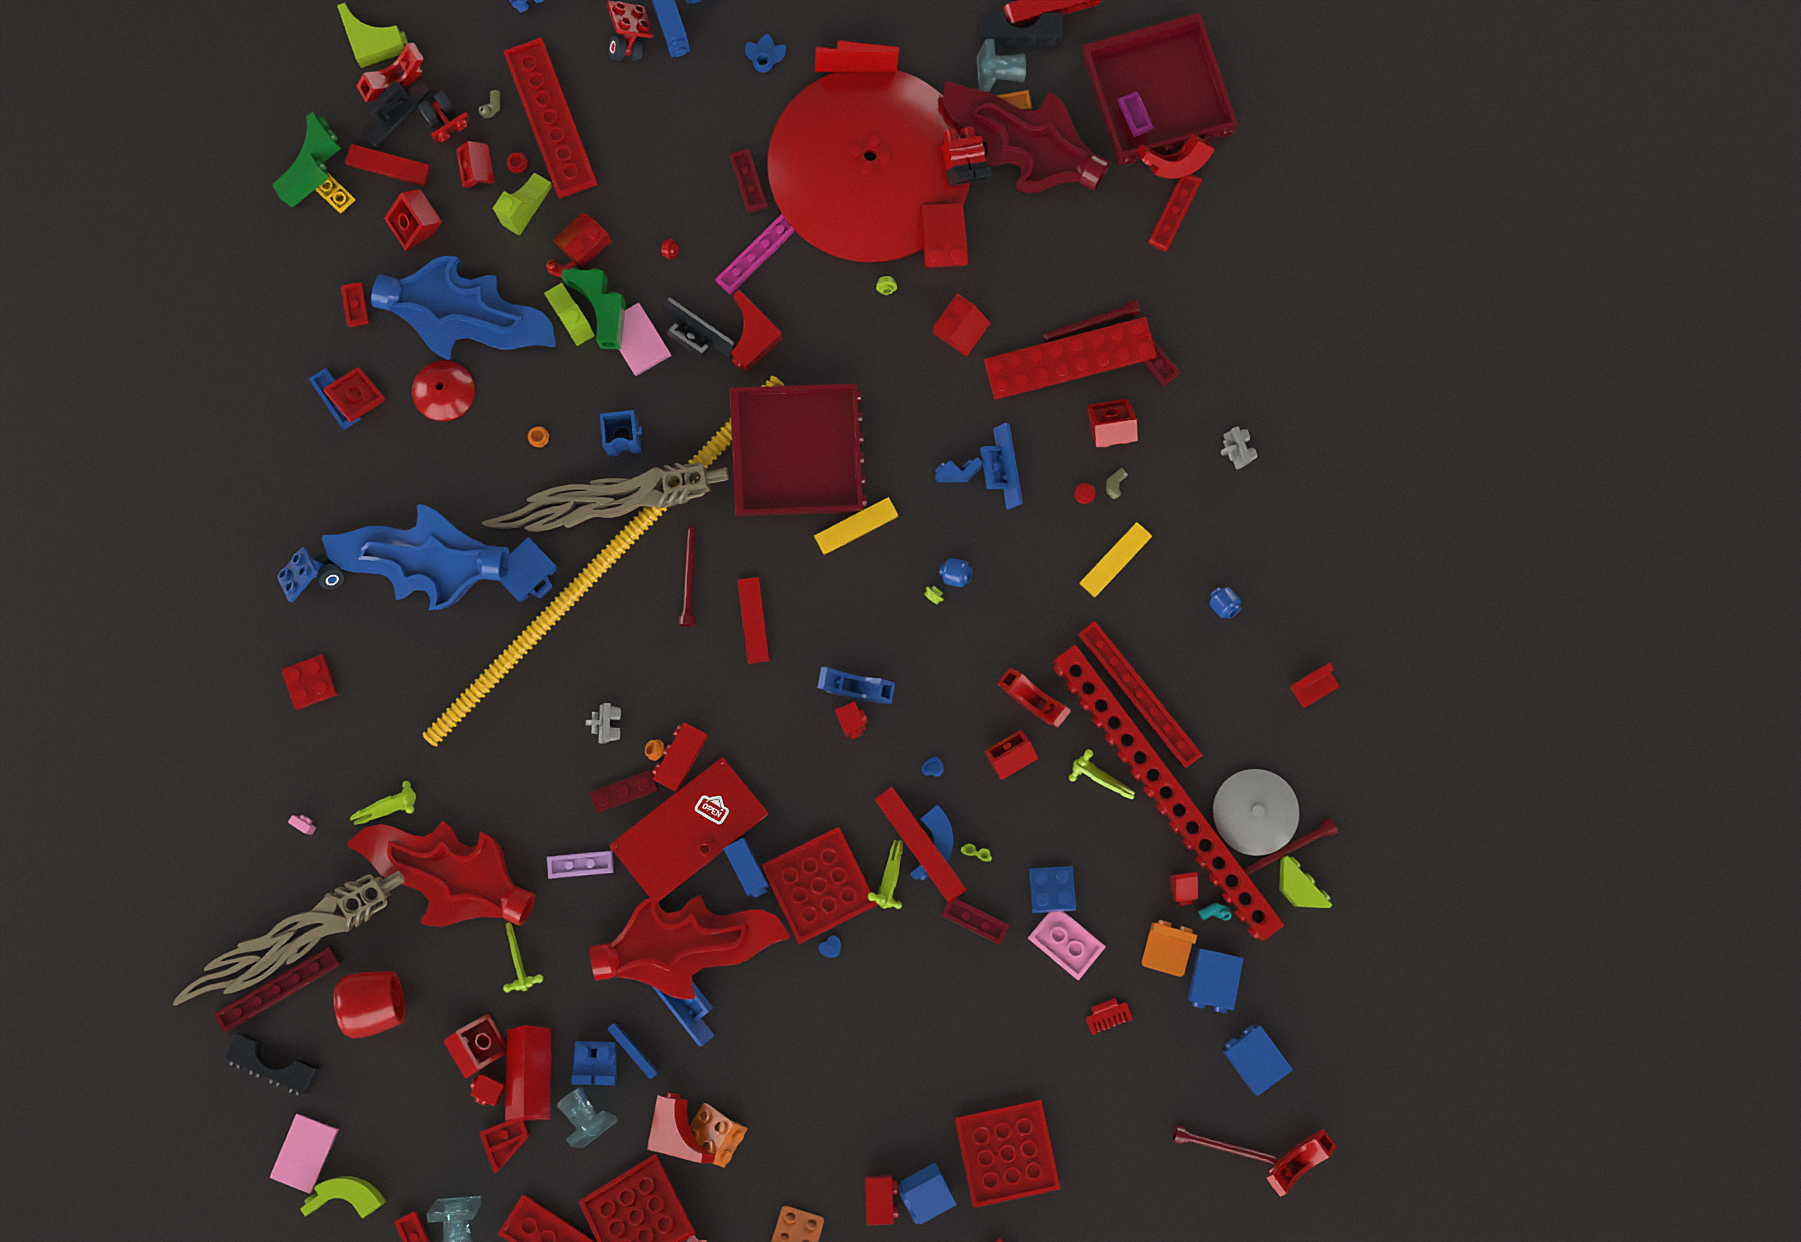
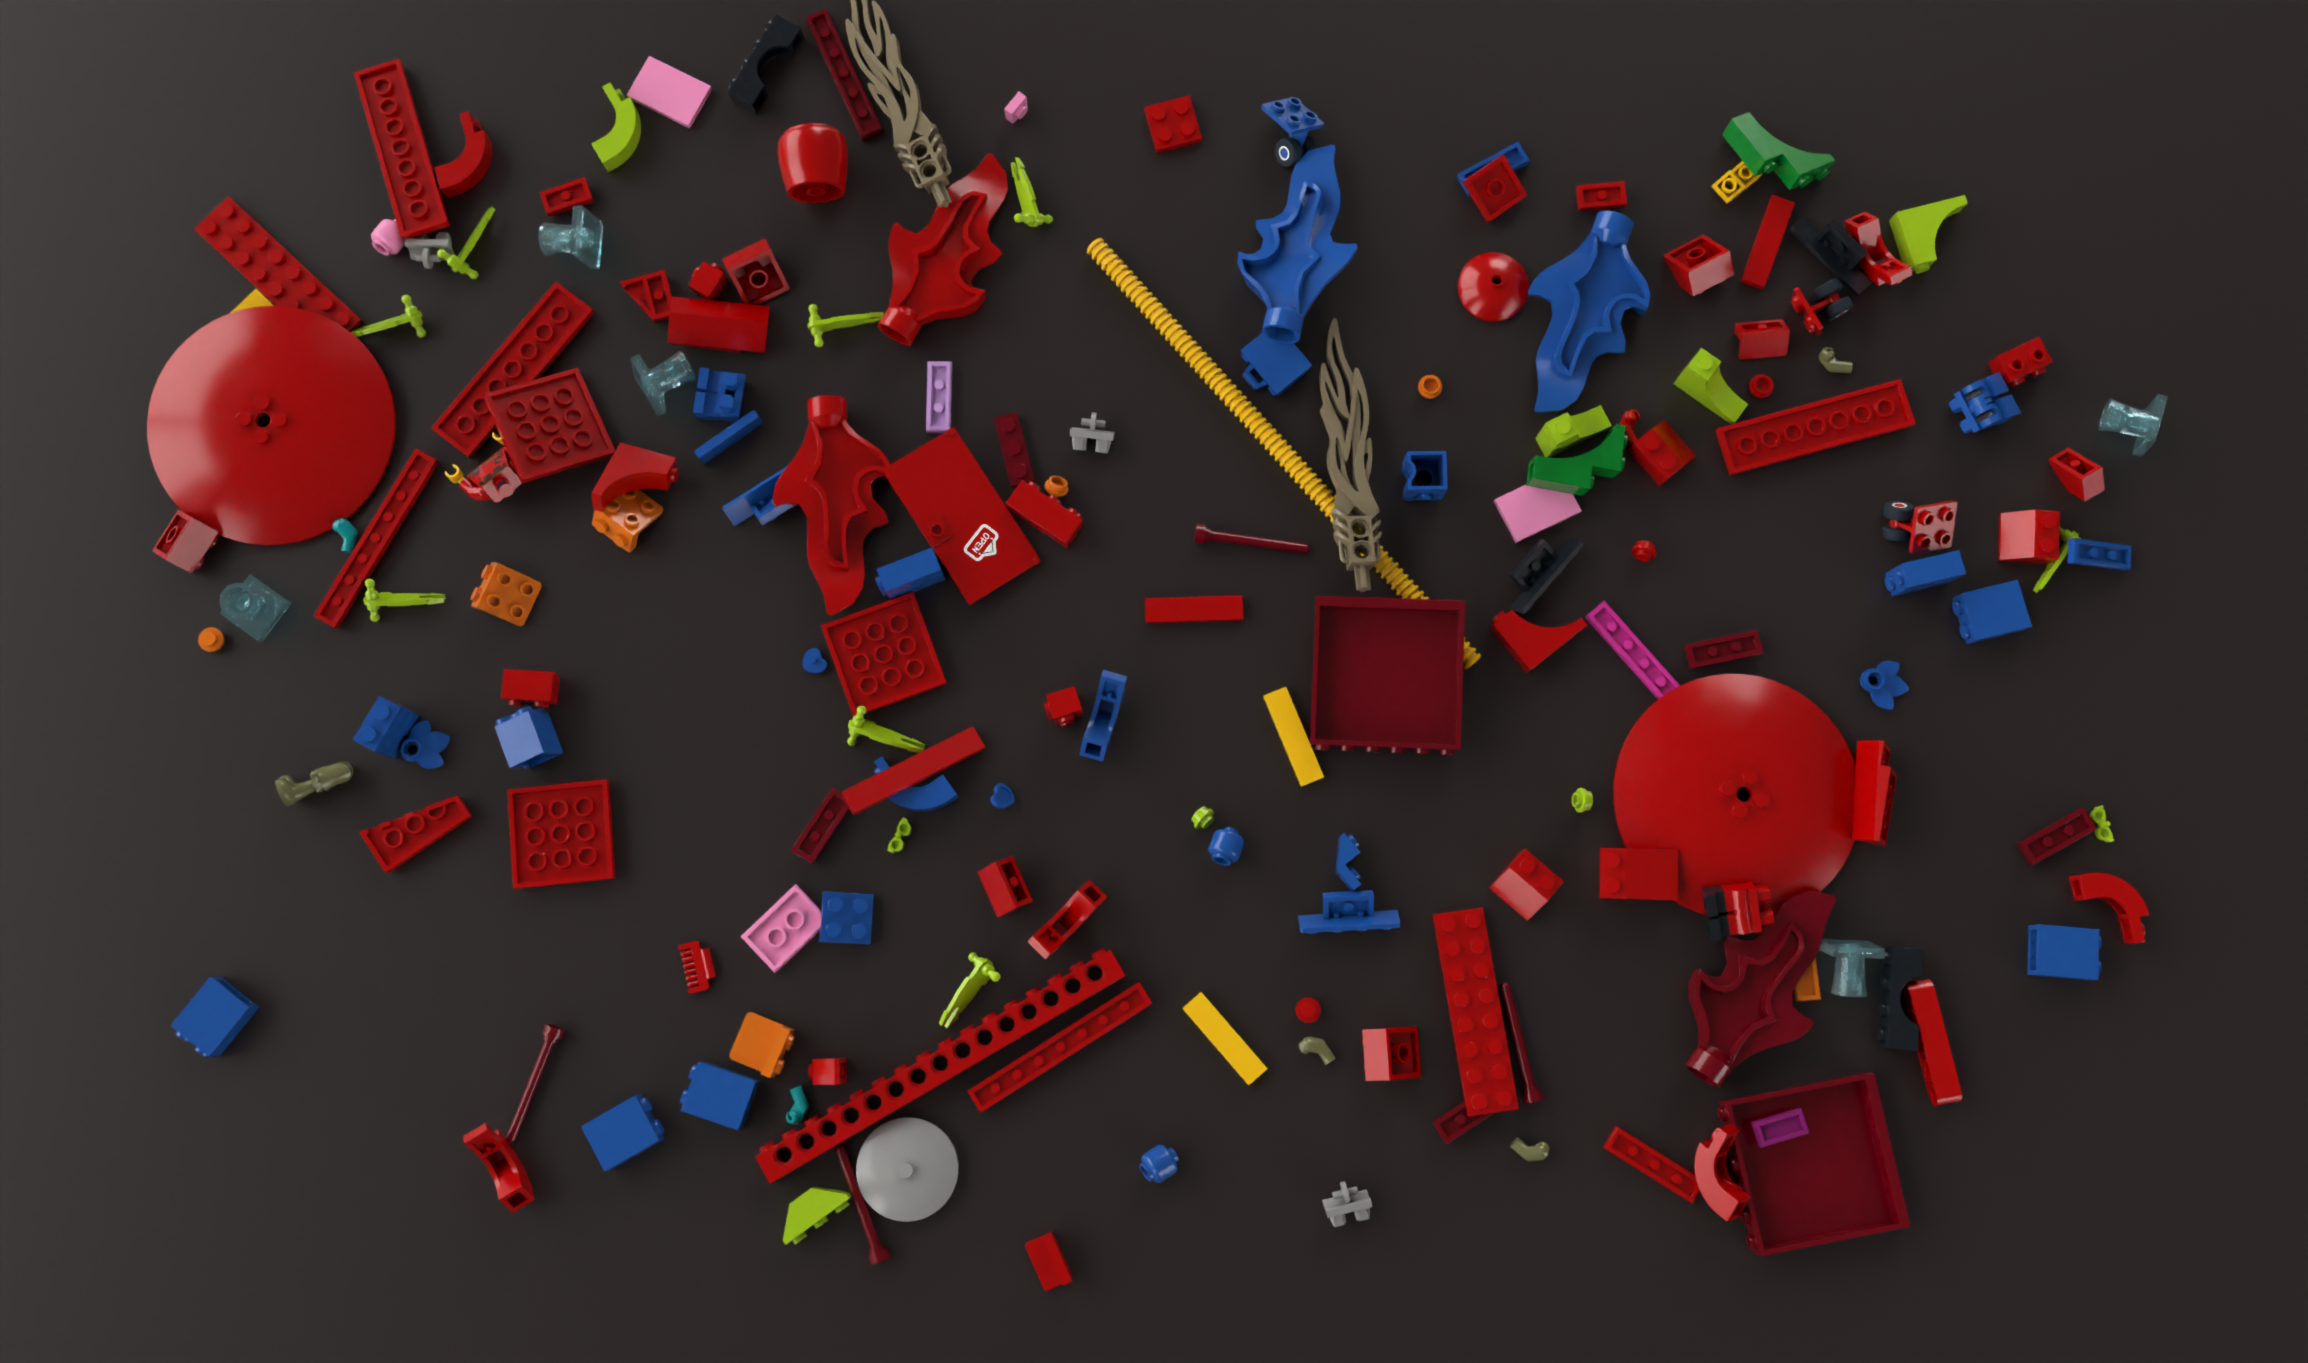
camera: 95 degrees right, 0 degrees up
(1177, 302) = (1530, 1153): none -> olive arm

